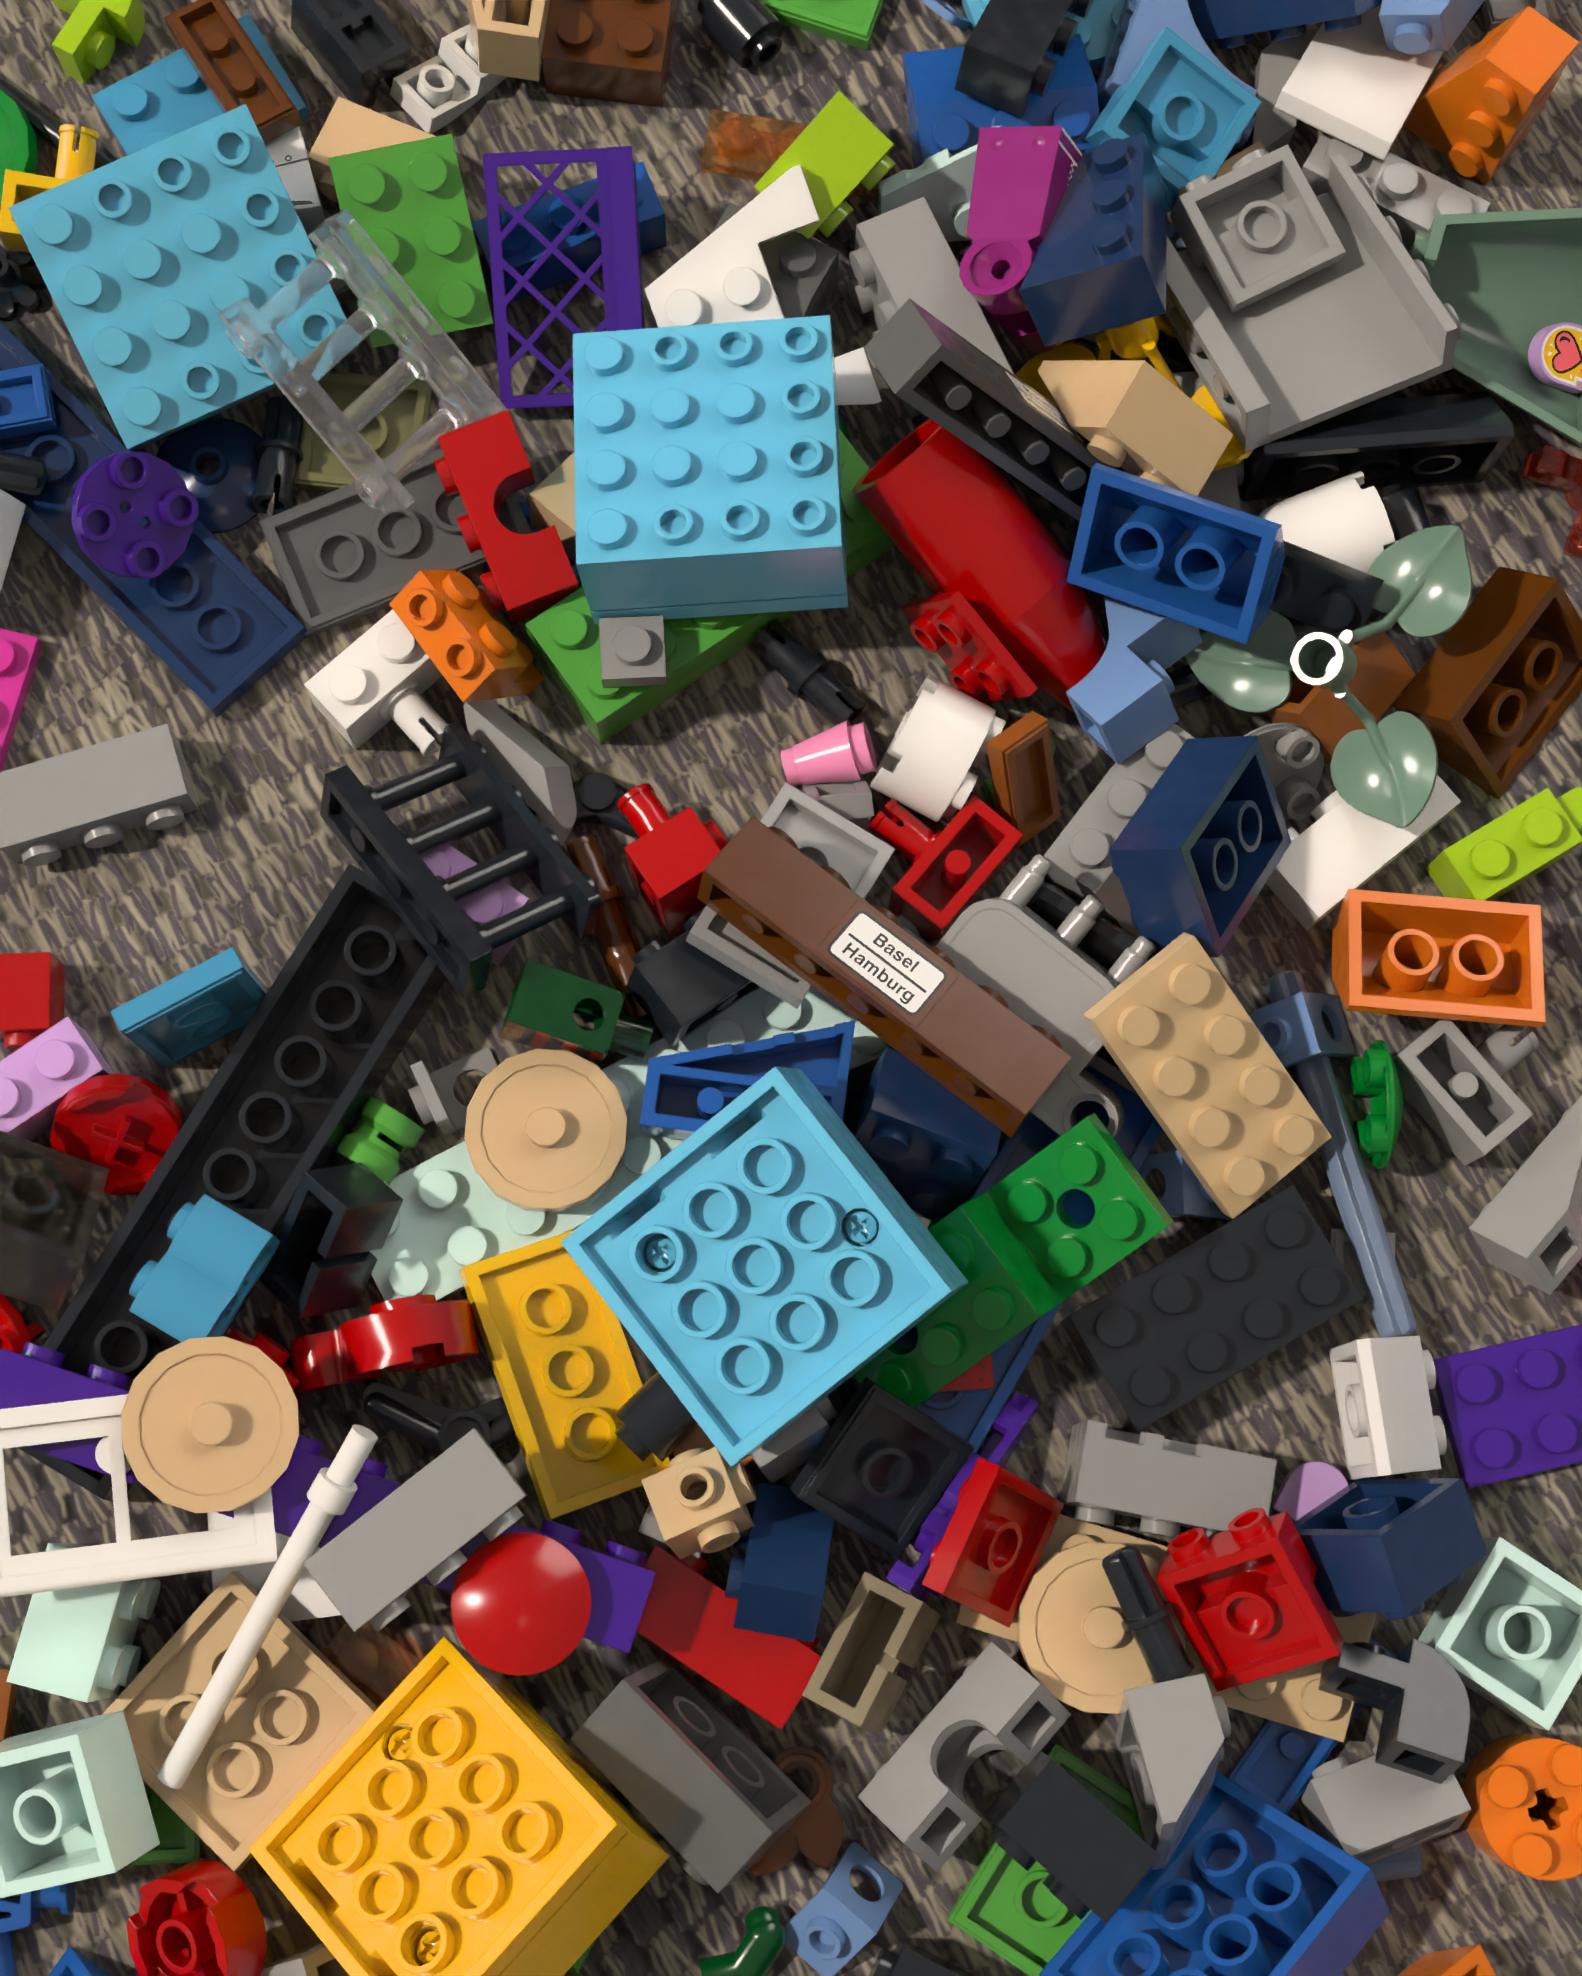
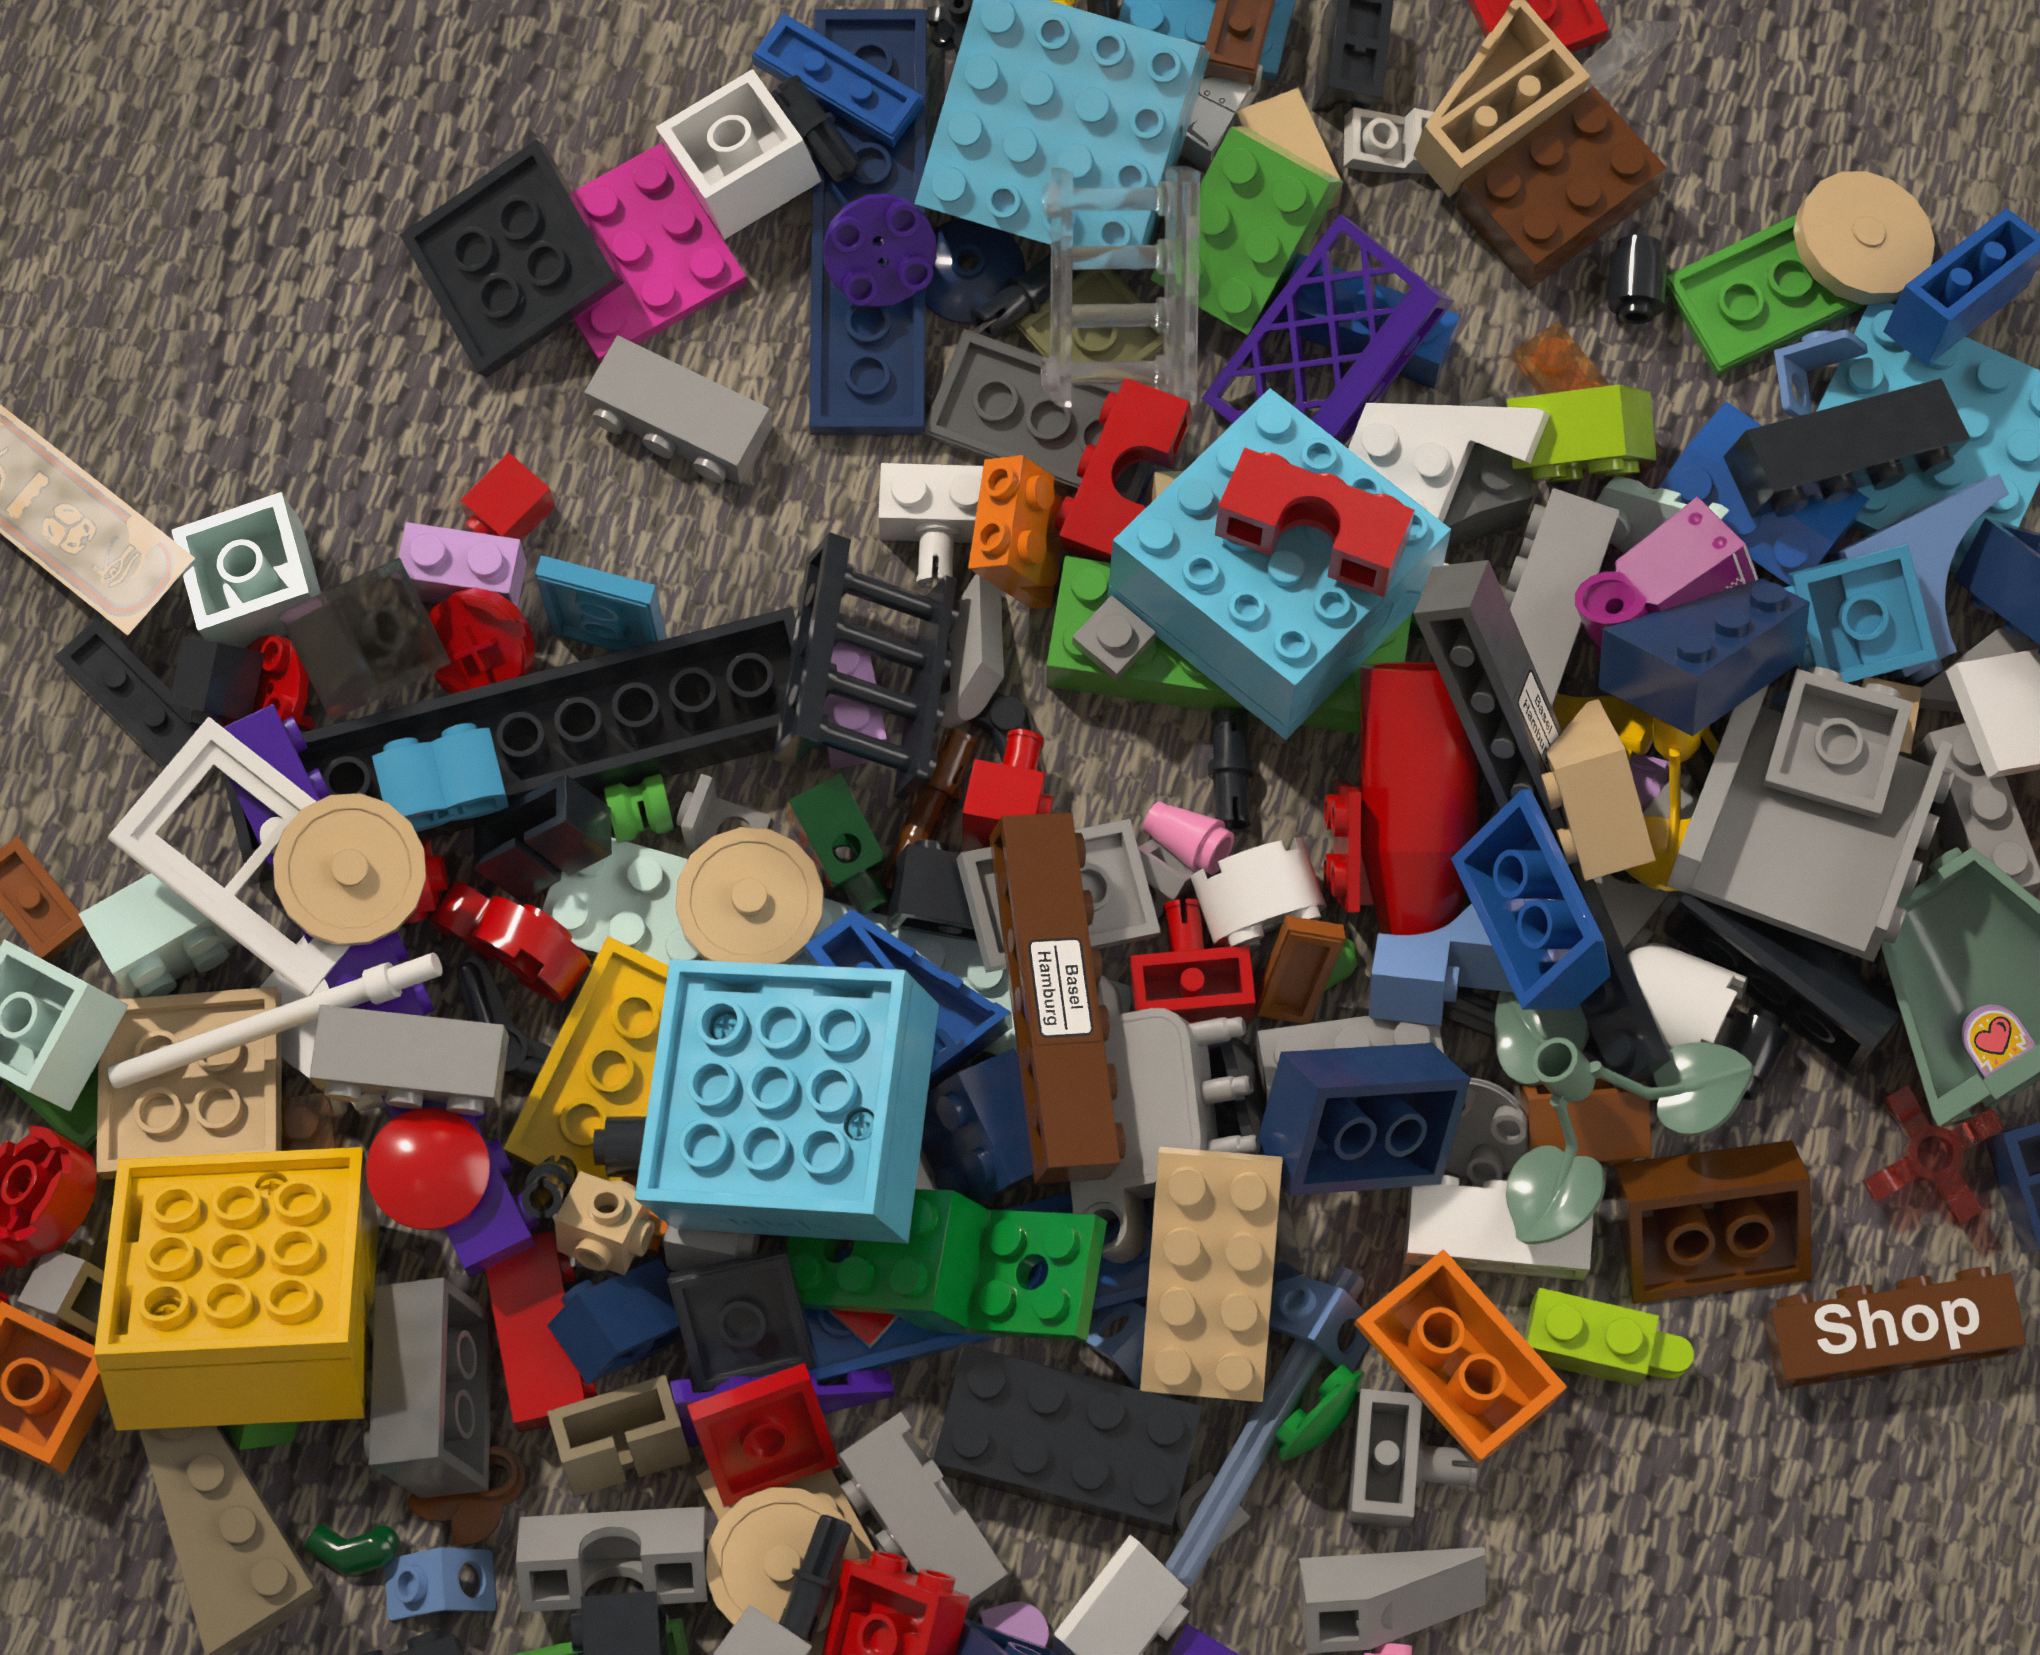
camera: 50 degrees right, 5 degrees down
(628, 1516) = (548, 1186): none -> black pin
(772, 370) = (1273, 496): none -> red arch

